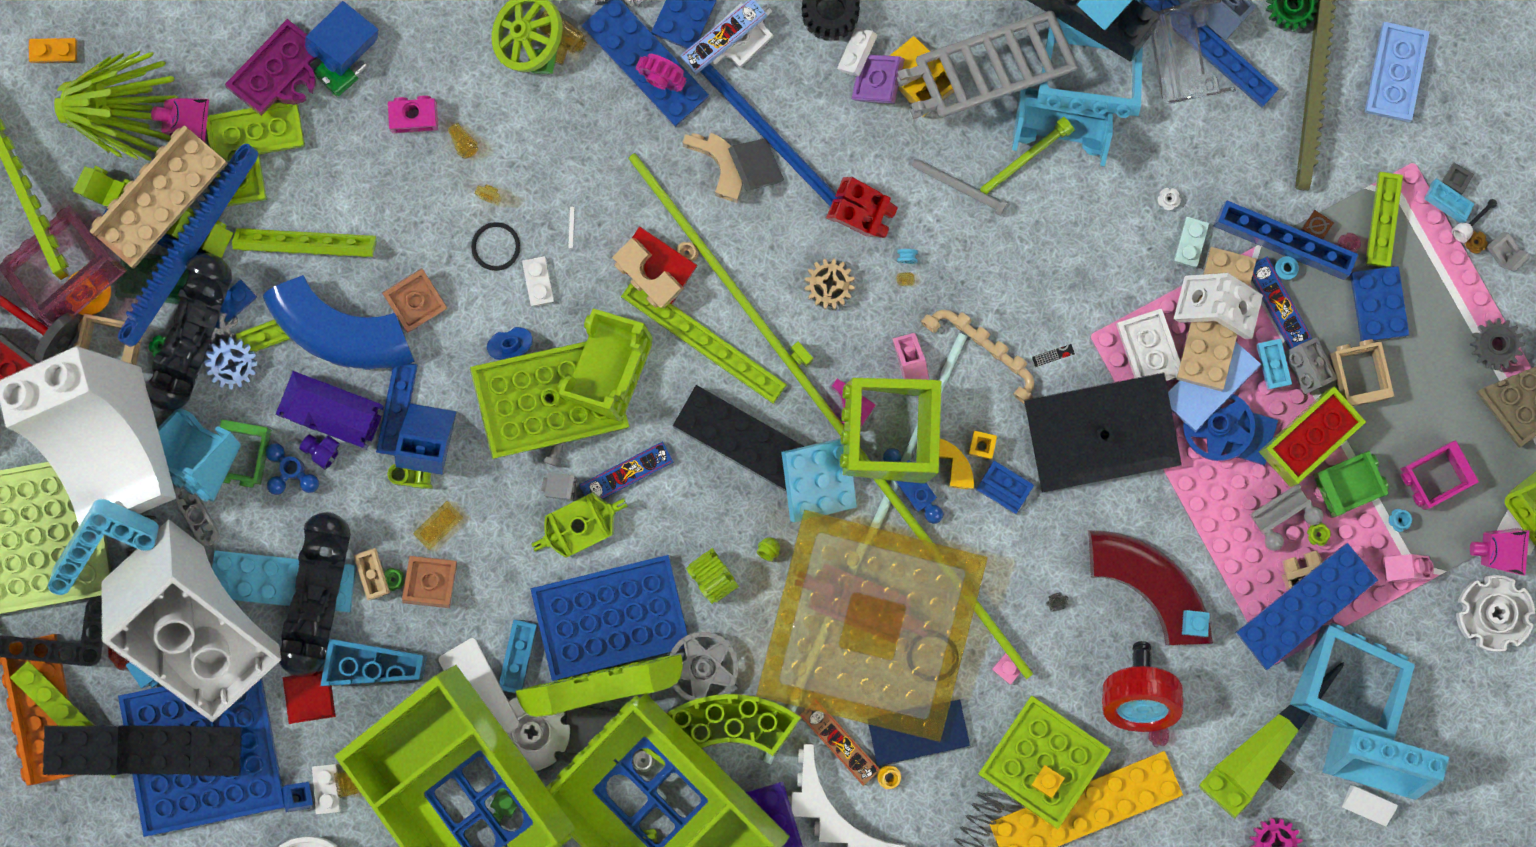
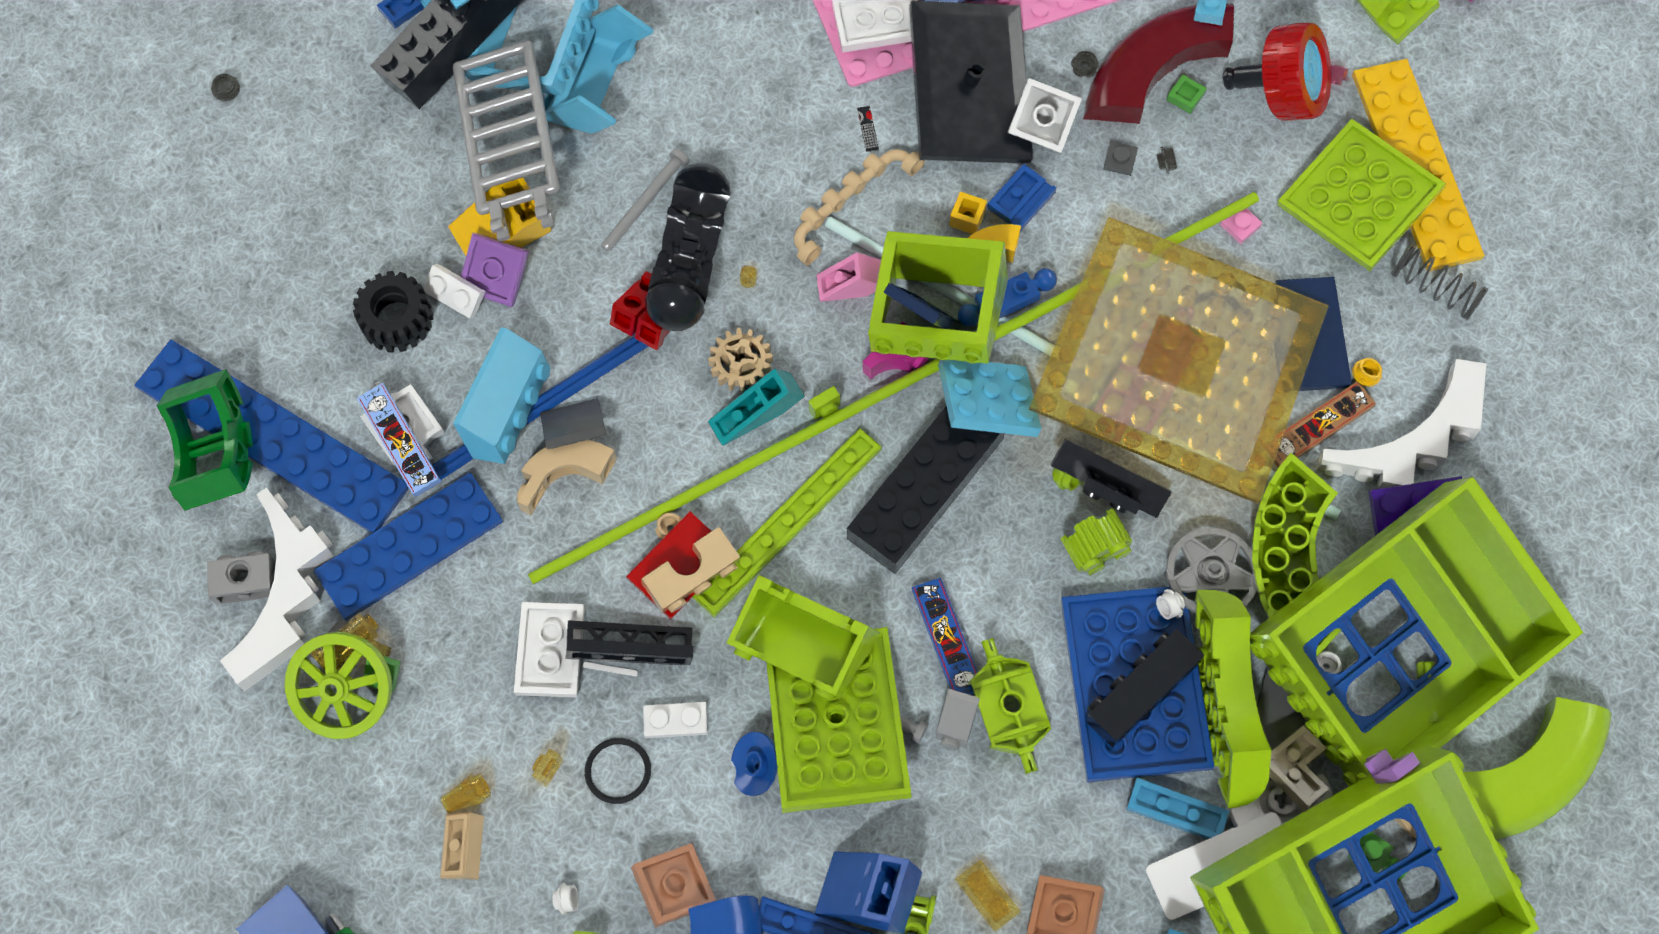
camera: 80 degrees left, 15 degrees down
(395, 223) = (566, 898): none -> white plate
(425, 121) = (423, 873): dark pink brick -> none
(425, 145) = (462, 846): none -> tan slope
(545, 799) = (1386, 769): none -> medium lavender slope
(550, 733) = (1291, 770): none -> dark tan plate
(578, 180) = (542, 650): none -> white plate
(580, 240) = (629, 650): none -> black fence
(600, 622) = (1144, 687): none -> black brick
(661, 72) = (431, 512): dark pink gear -> none
(670, 636) = (1170, 604): none -> white plate
(761, 580) = (1110, 480): none -> black bracket
(765, 107) = (501, 397): none -> medium azure slope
(792, 302) = (757, 406): none -> teal slope
(879, 418) = (922, 307): none -> dark blue tile
(907, 256) = (721, 267): medium azure bush -> none
(915, 227) = (685, 263): none -> black piece
(1048, 781) = (1387, 187): yellow plate -> none
(1054, 564) = (1120, 158): none -> dark grey plate
(1062, 129) = (597, 78): lime piece -> none
(1077, 496) = (1044, 115): none -> white slope
(1121, 612) = (1186, 94): none -> bright green plate
(1141, 531) = (1087, 58): none -> clear smoke plate

